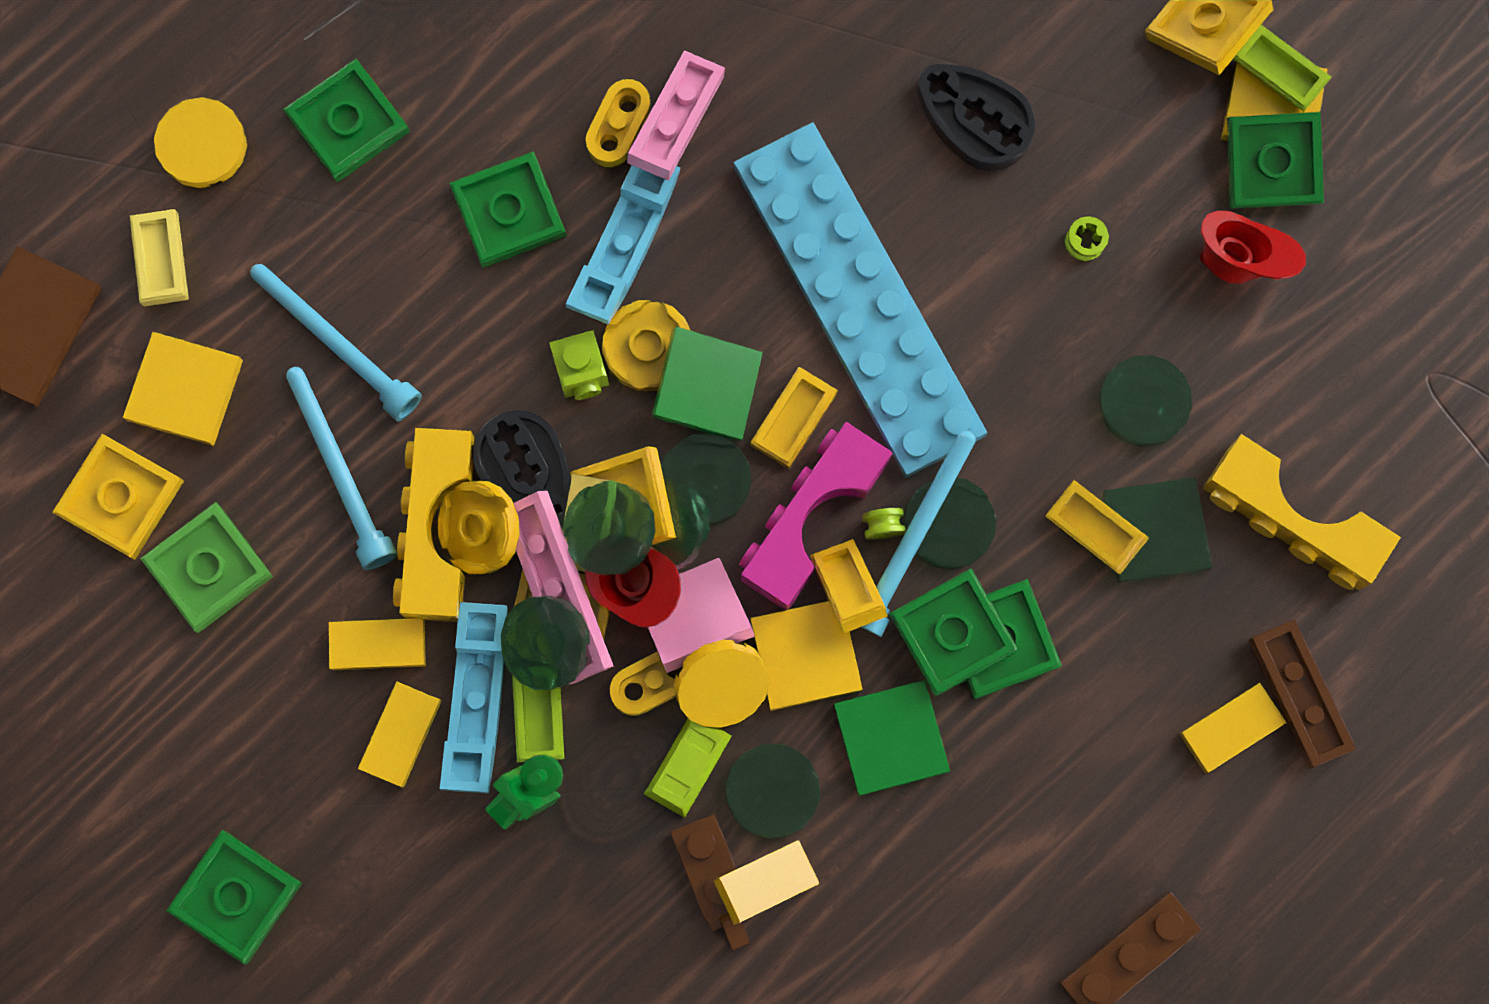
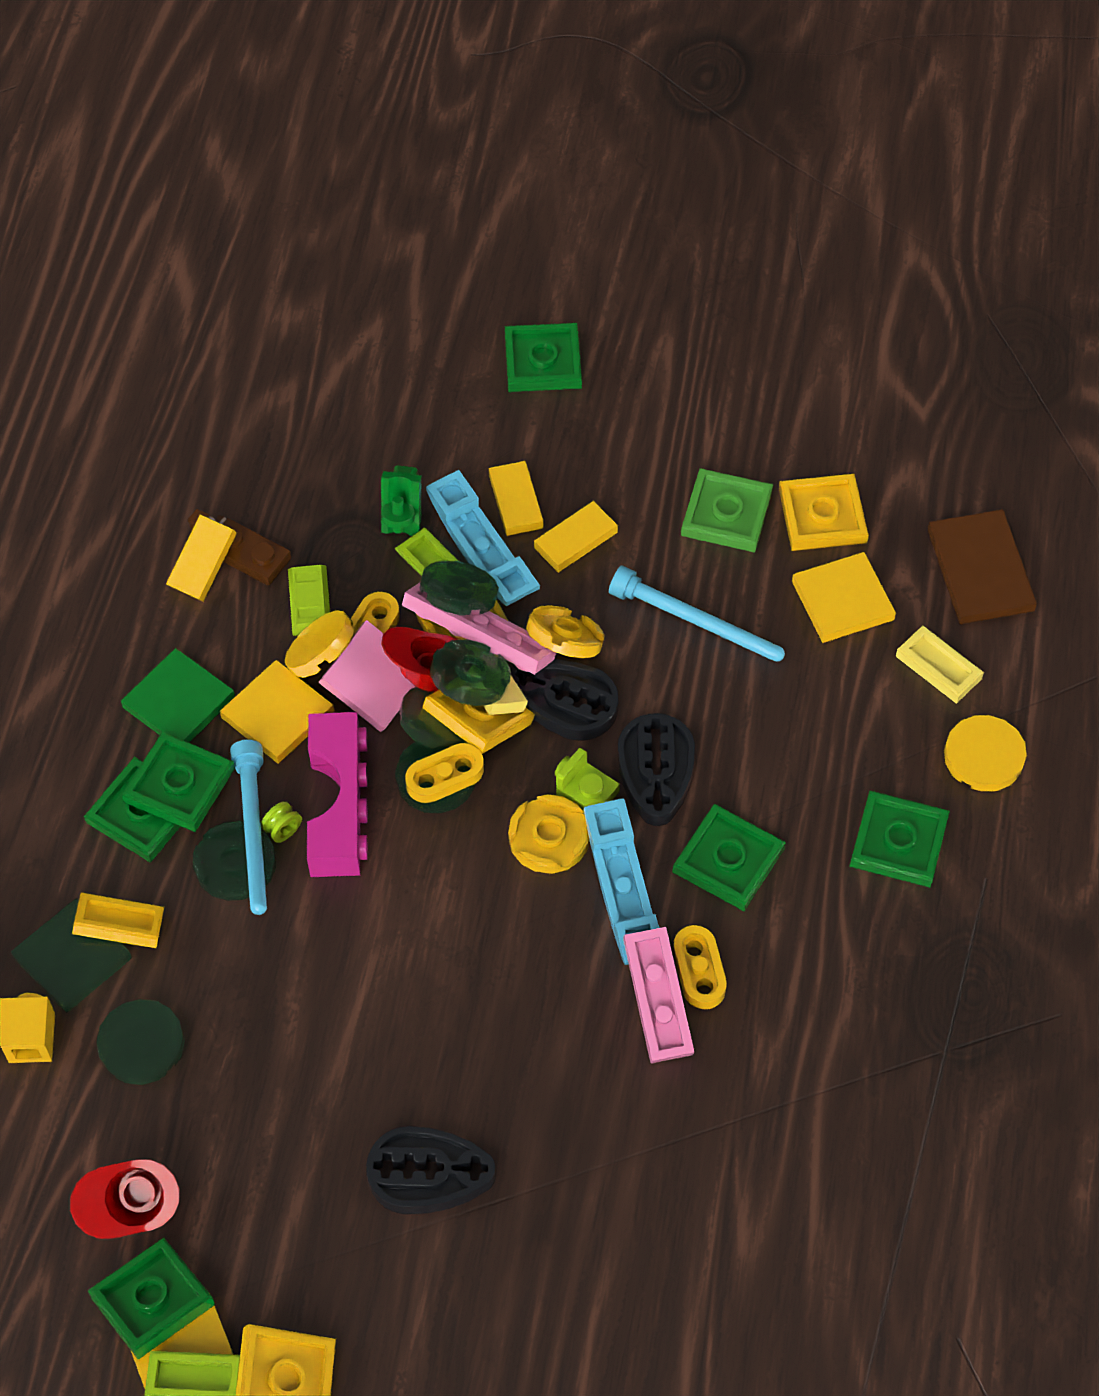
camera: 145 degrees right, 20 degrees down
(398, 397) = (696, 682): medium azure piece -> none
(429, 584) = (625, 654): yellow arch -> none
(476, 331) = (676, 763): none -> black piece
(705, 452) = (443, 773): none -> yellow plate
(707, 384) = (482, 829): green tile -> none
(773, 790) = (238, 620): clear green tile -> none
(793, 418) = (402, 856): yellow tile -> none
(848, 586) = (276, 761): yellow tile -> none
(858, 298) = (420, 971): medium azure plate -> none
(1073, 242) = (279, 1124): lime bush -> none

